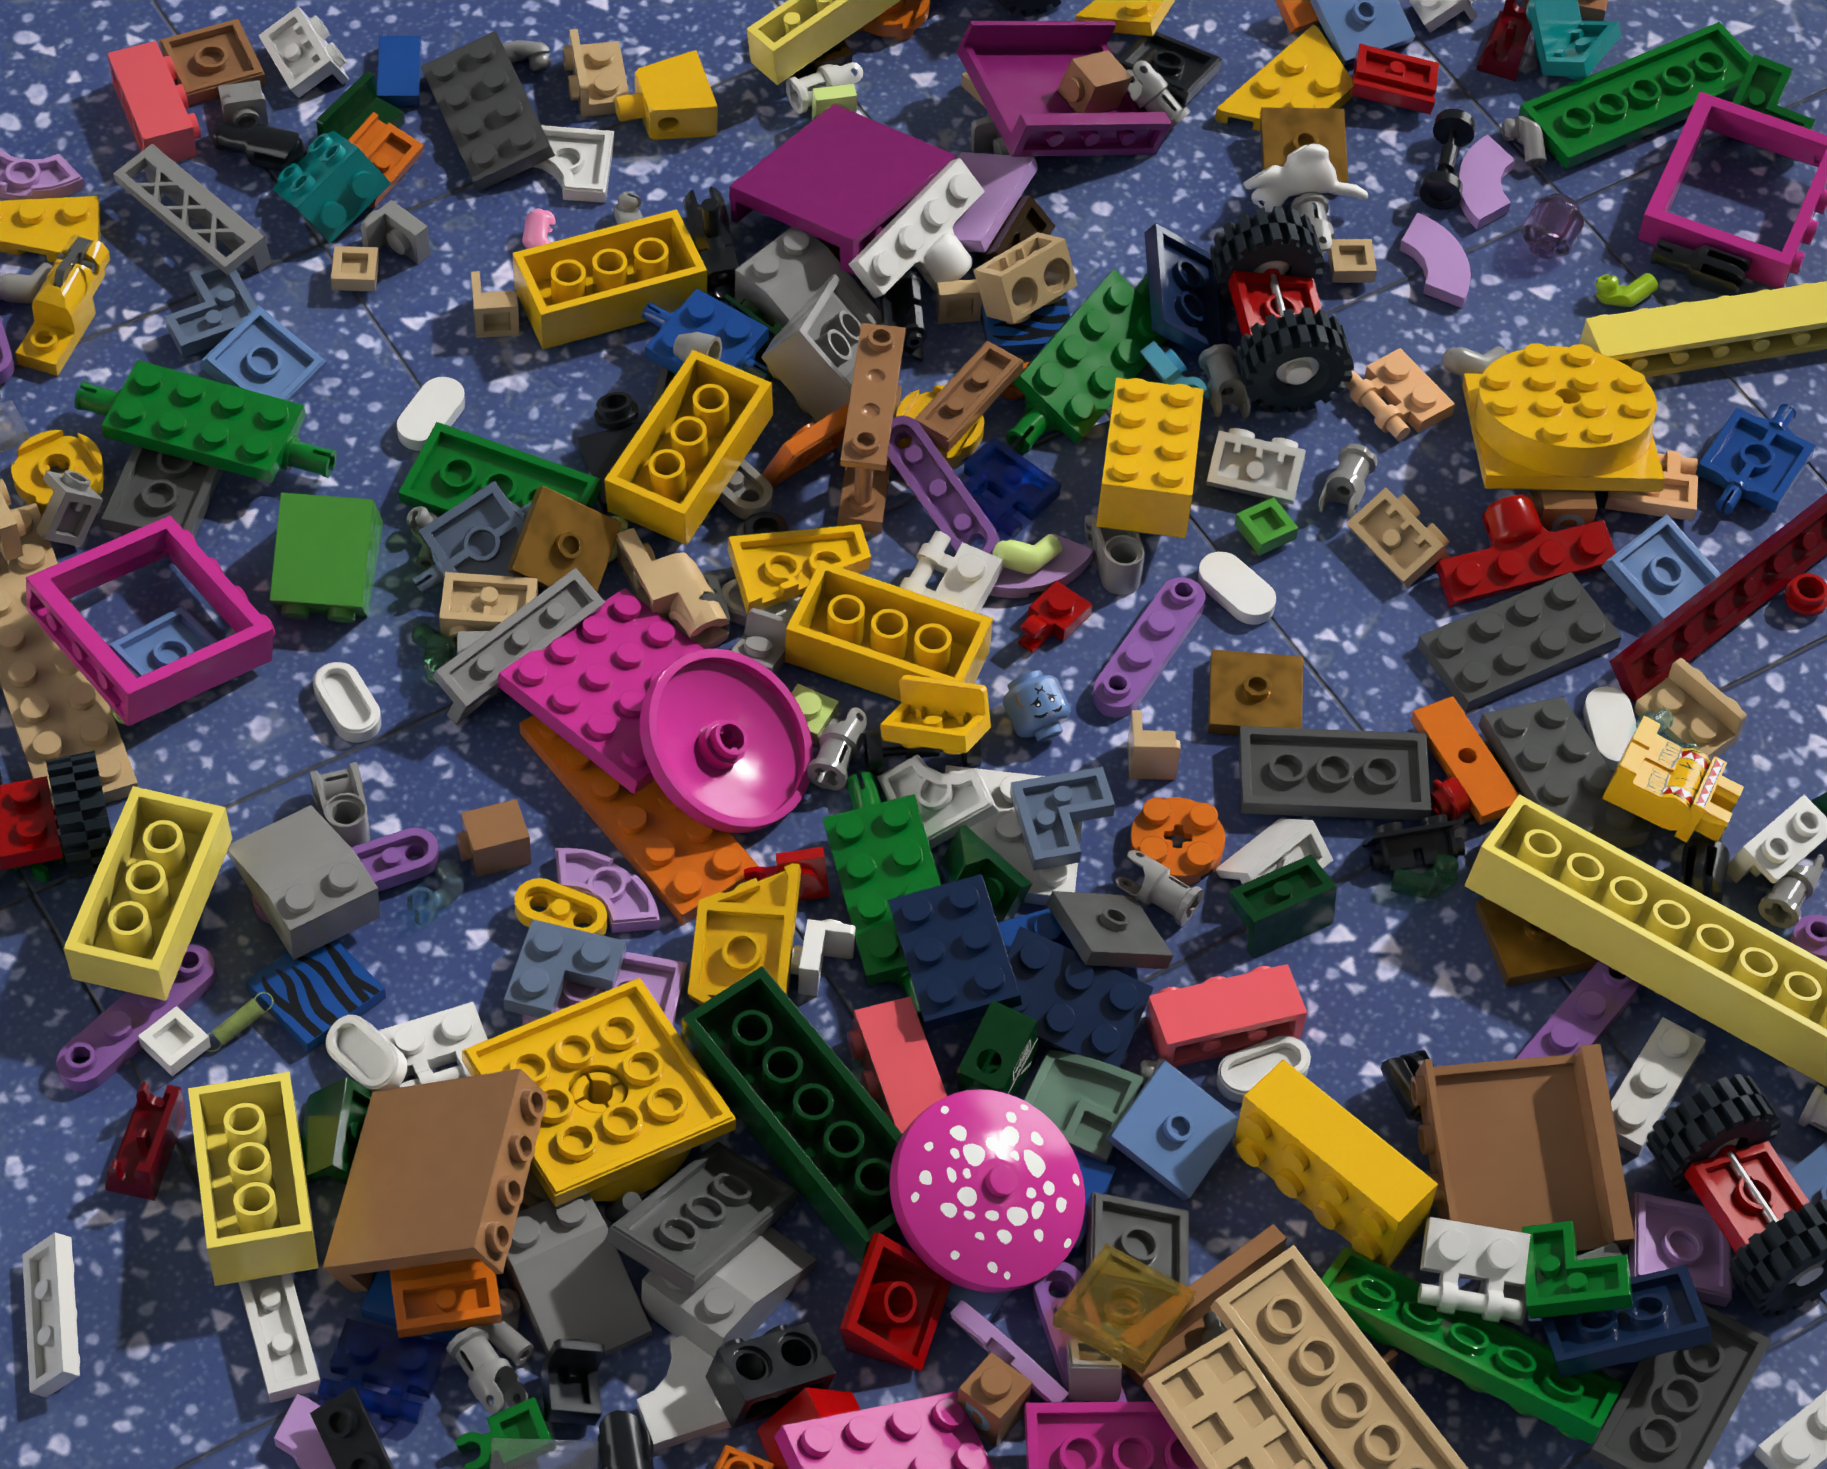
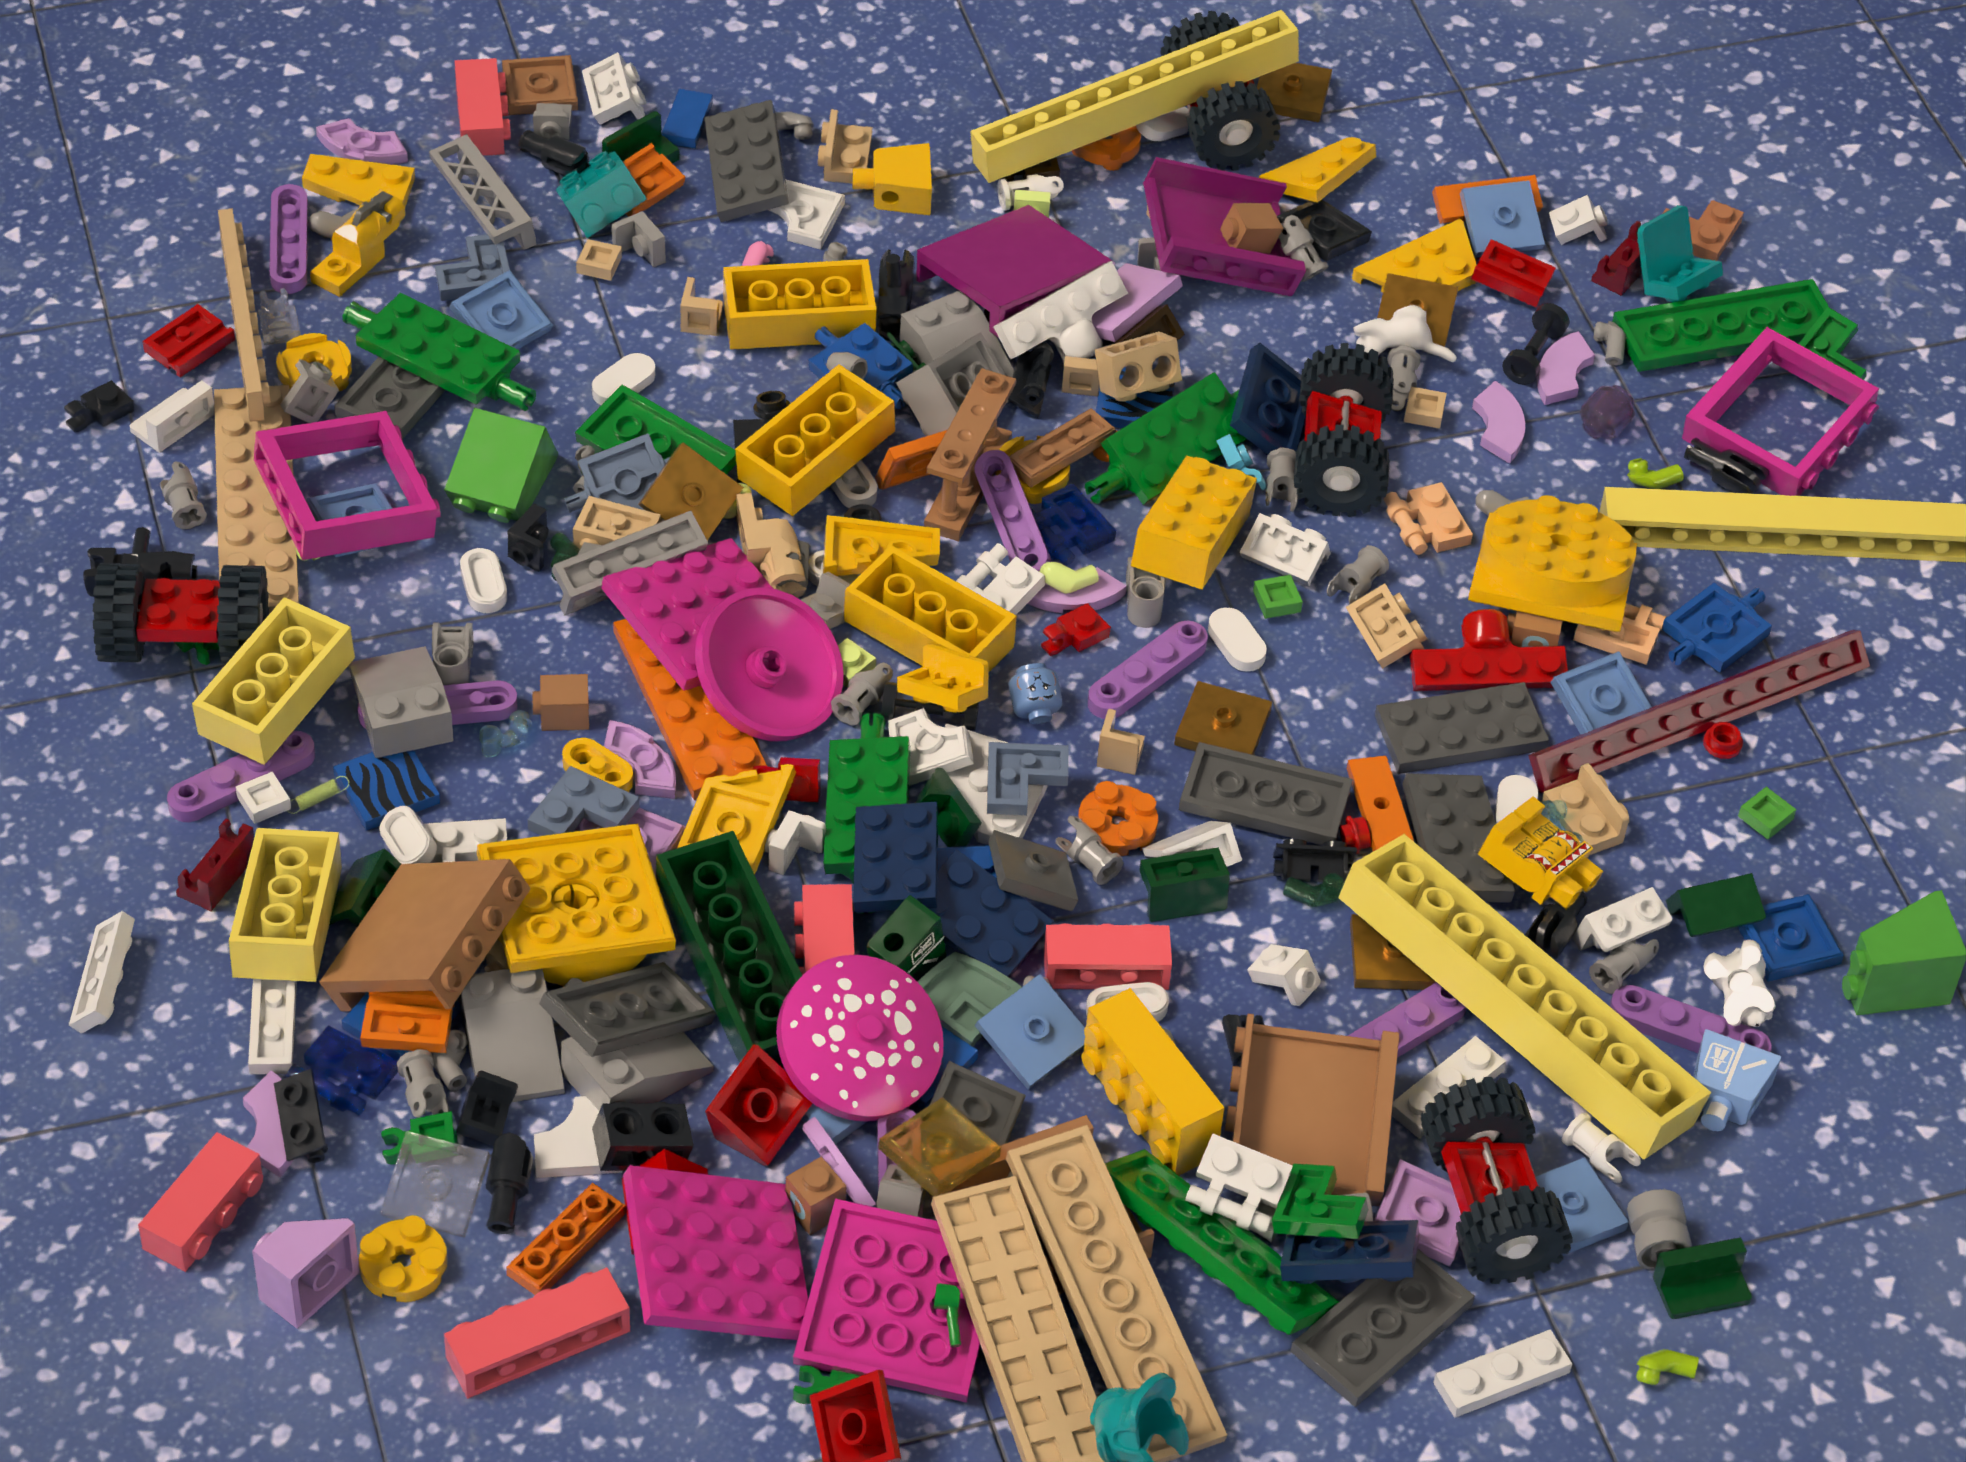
camera: 15 degrees right, 5 degrees down
(384, 639) = (527, 538): none -> black bracket
(1428, 984) = (1287, 969): none -> white bracket

